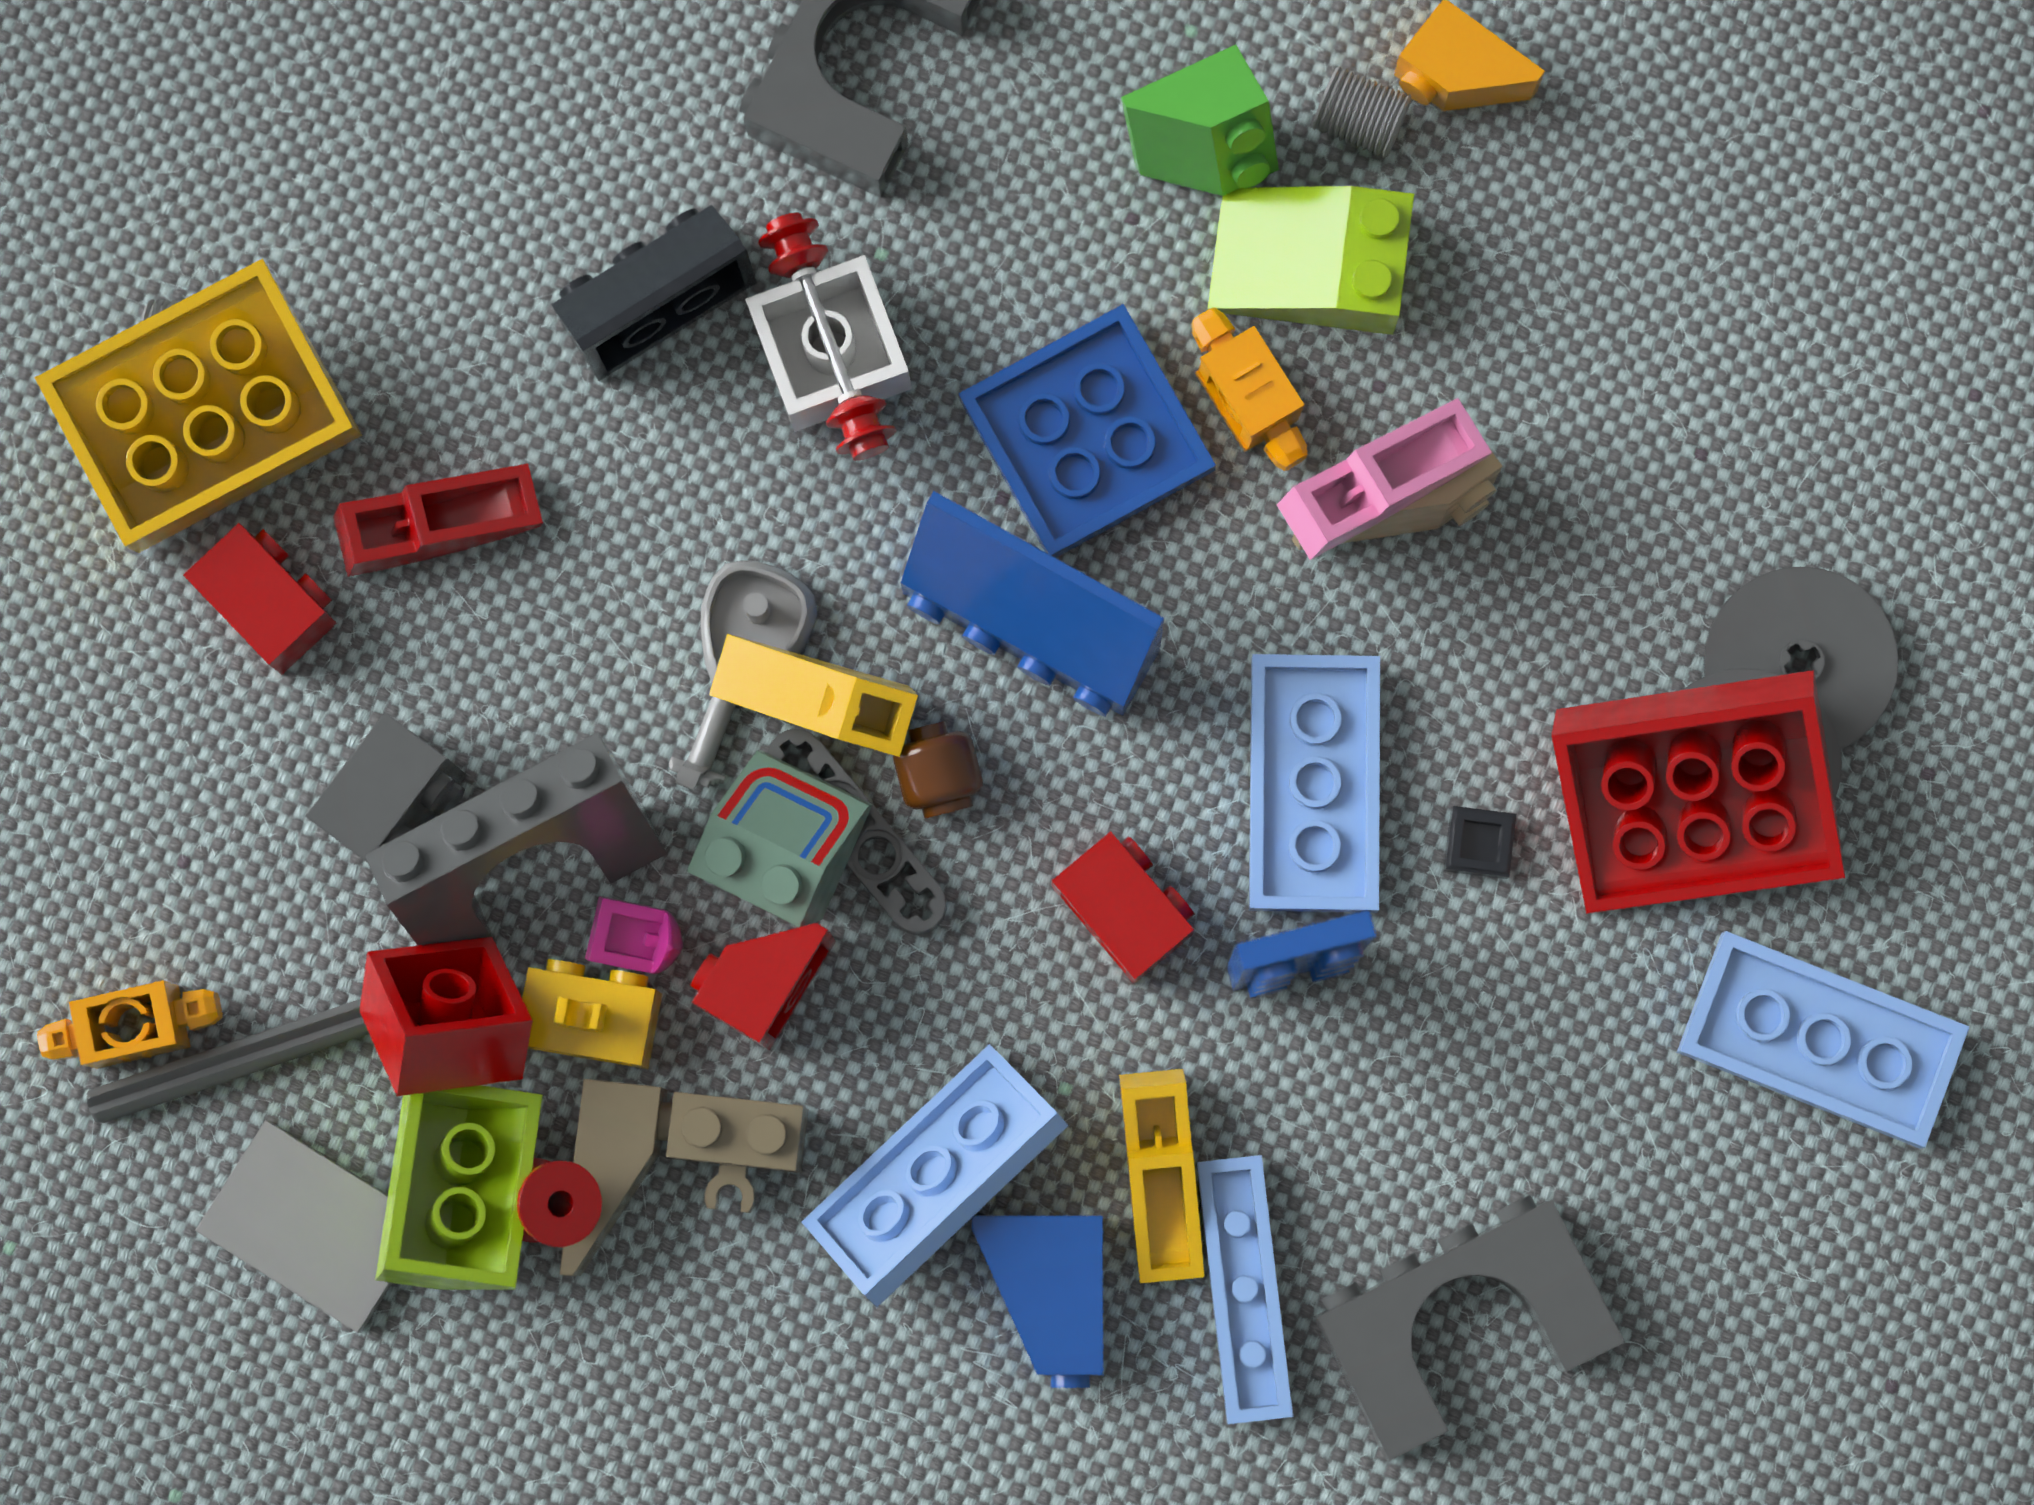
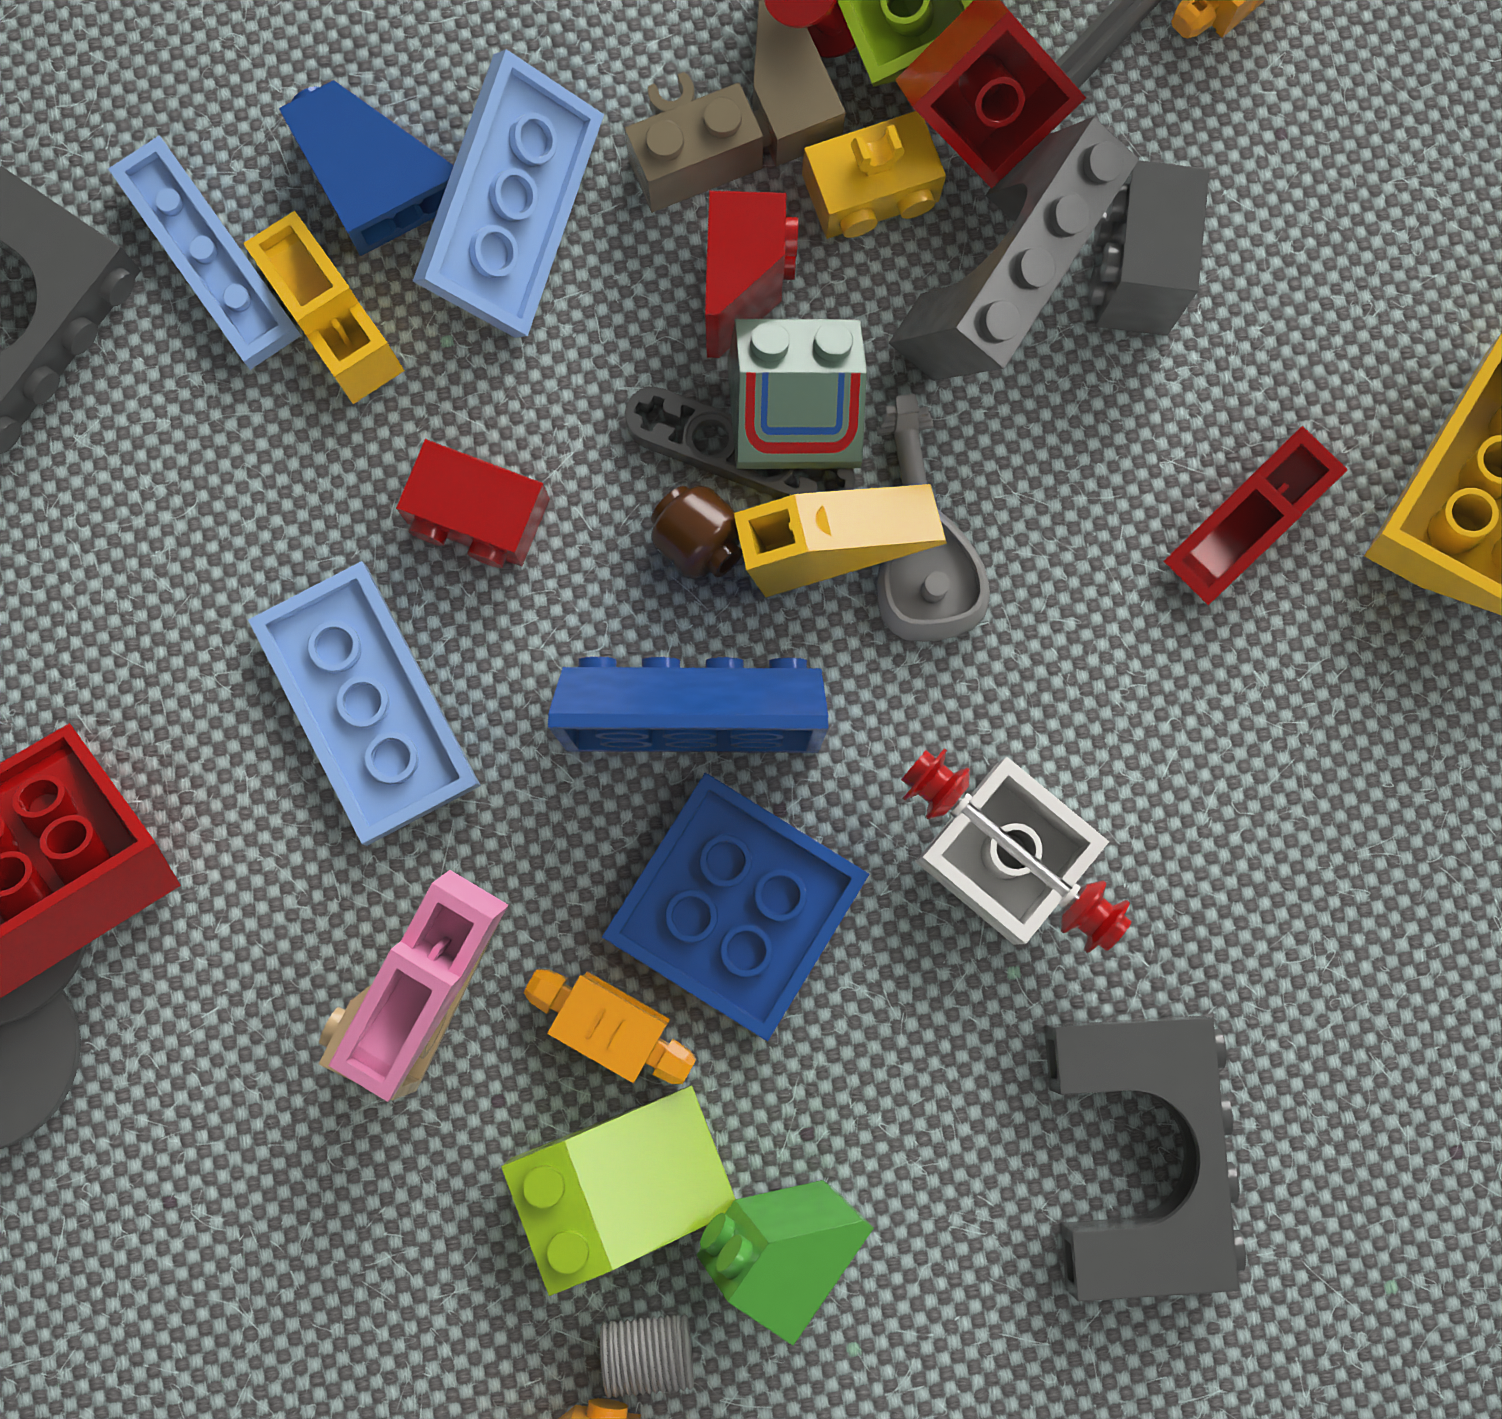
camera: 140 degrees right, 0 degrees up
(261, 598) = (1360, 365): red brick -> none
(633, 936) = (874, 261): dark pink plate -> none
(654, 290) = (1197, 813): black slope -> none
(1320, 948) = (272, 510): blue plate -> none
(1480, 842) = (194, 734): black tile -> none

